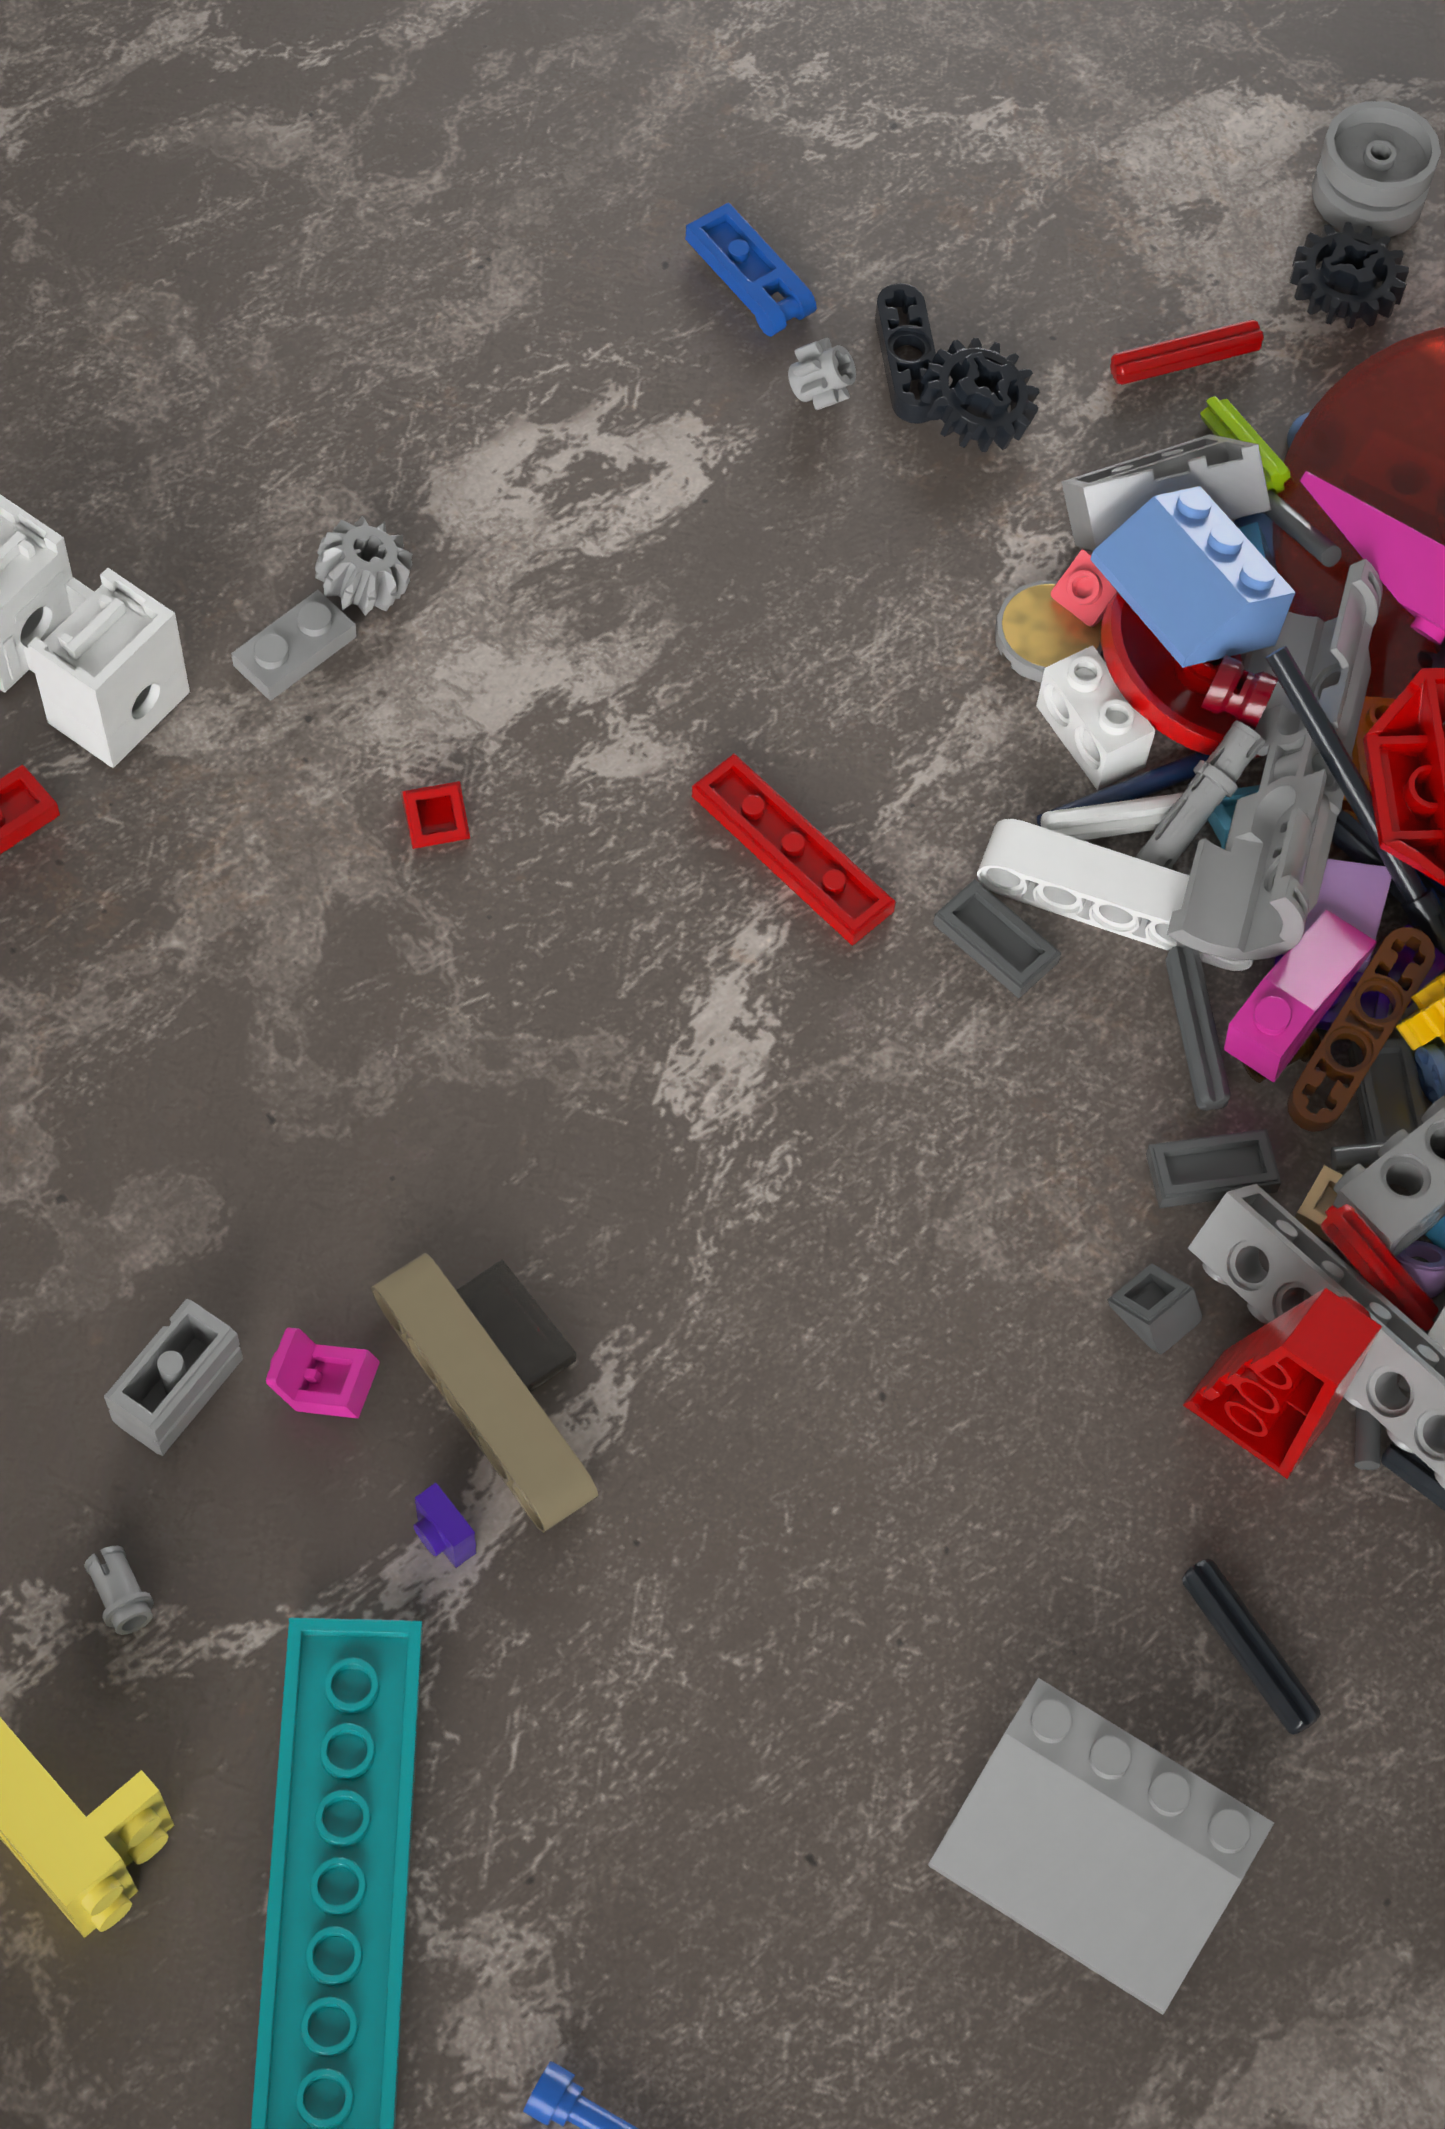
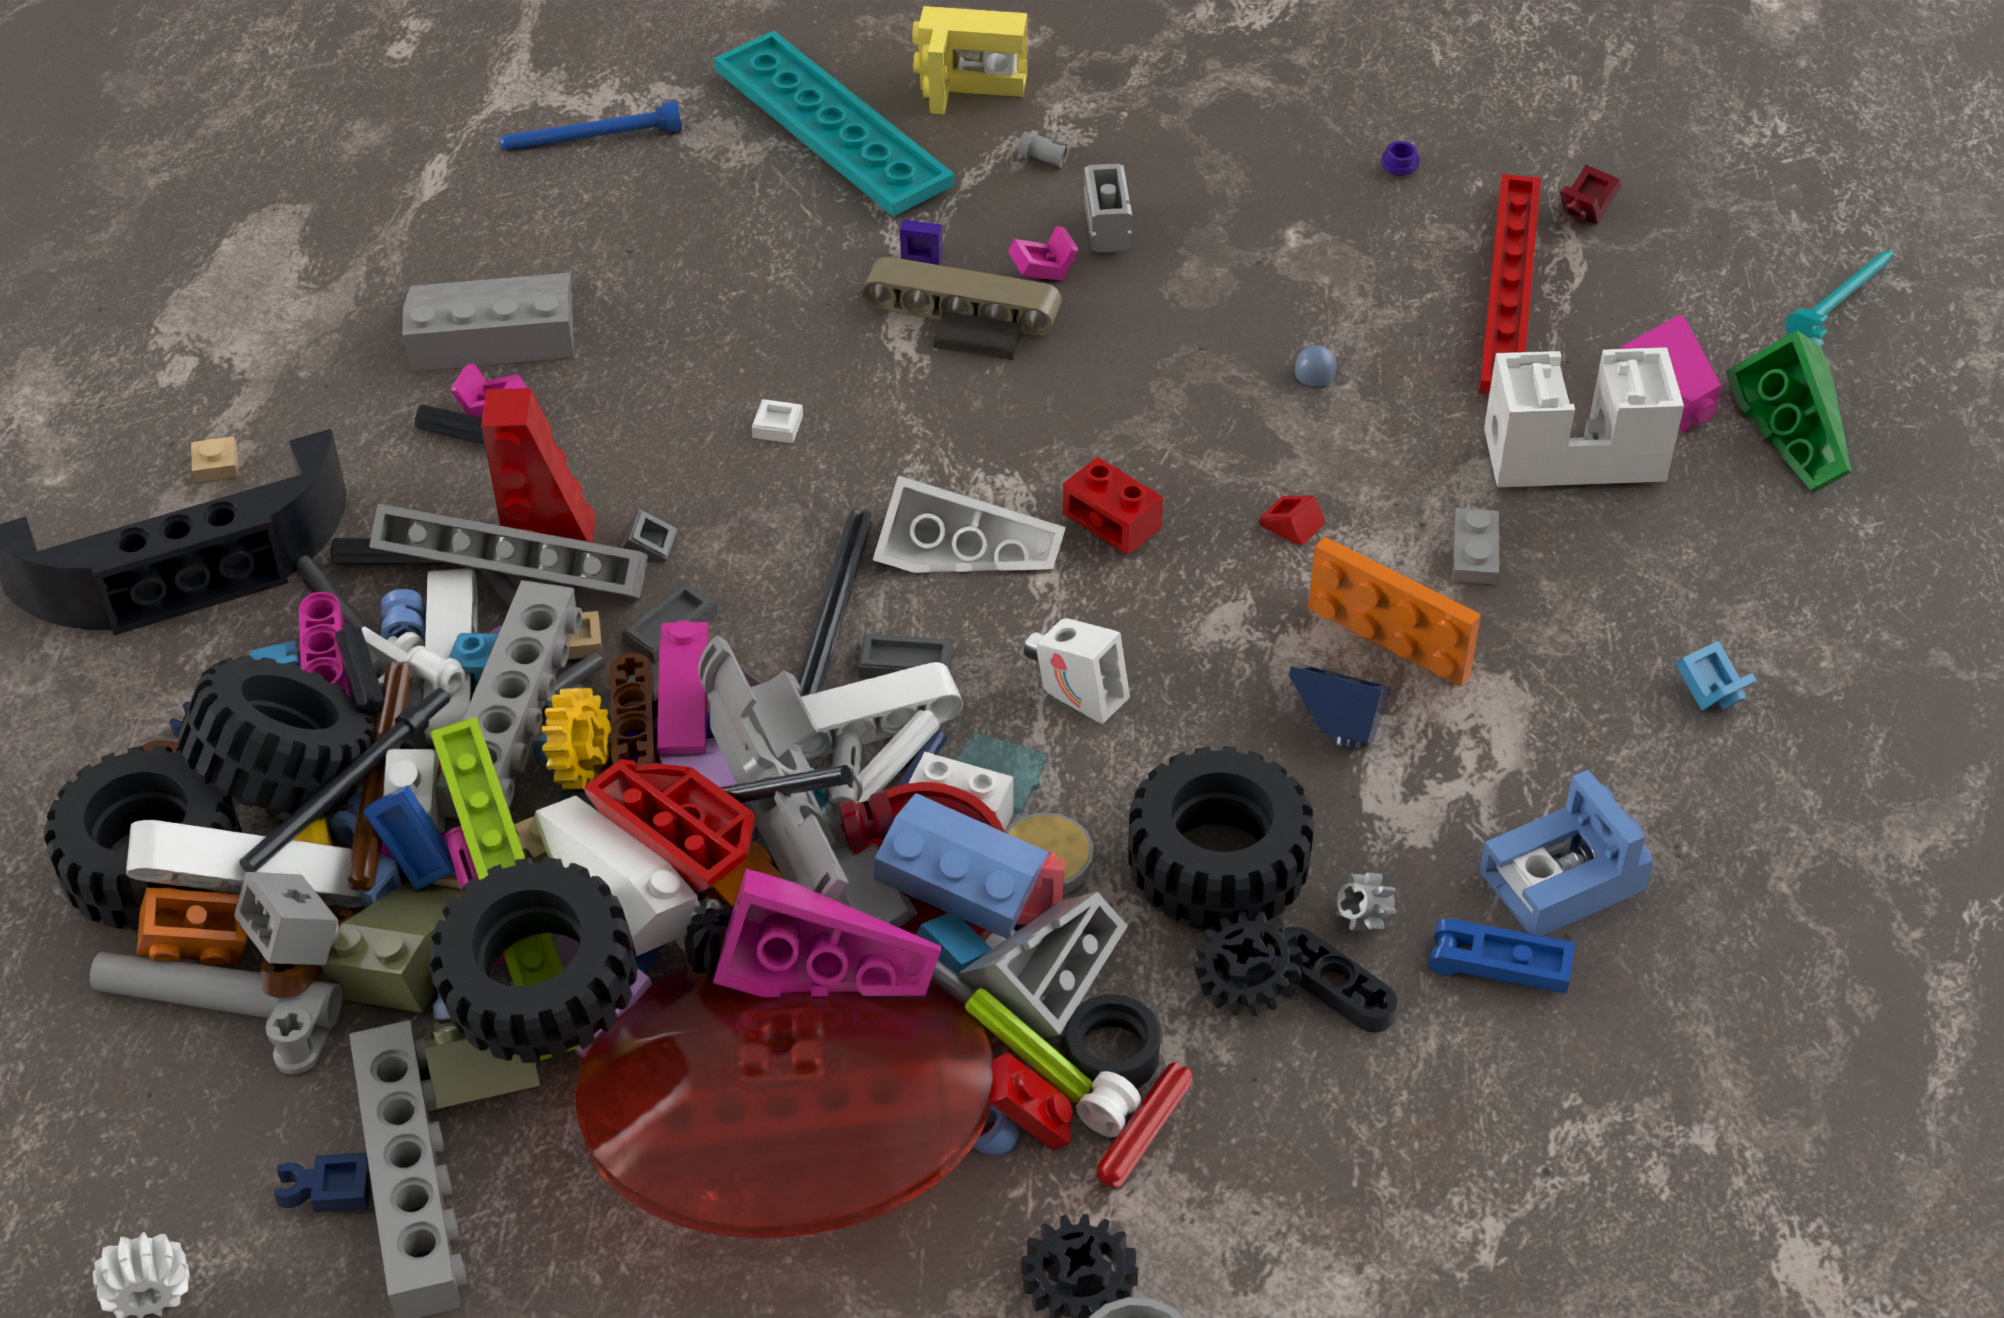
camera: 145 degrees right, 15 degrees down
(189, 978) = (1316, 366): none -> sand blue piece
(268, 341) = (1713, 677): none -> dark azure bracket
(363, 565) = (1488, 589): light grey gear -> none
(498, 591) = (1393, 611): none -> orange plate
(607, 285) = (1569, 860): none -> medium blue brick
(623, 931) = (1112, 505): none -> red brick
(624, 563) = (1342, 703): none -> dark blue slope
(793, 849) = (1015, 621): red tile -> none
(818, 1058) = (952, 532): none -> white wedge
(852, 761) = (1082, 667): none -> white torso
(866, 1376) = (777, 421): none -> white tile
(904, 444) = (1227, 791): none -> black tyre
(1018, 751) = (1009, 759): none -> clear light blue piece
(1020, 1053) = (834, 602): none -> black axle
(1159, 389) = (1114, 1011): none -> black tyre
(1201, 1673) = (471, 388): none -> dark pink bracket
(1209, 373) = (1108, 1104): none -> white wheel
(1288, 394) = (1031, 1101): none -> red plate
(1378, 1264) = (534, 569): red axle -> none

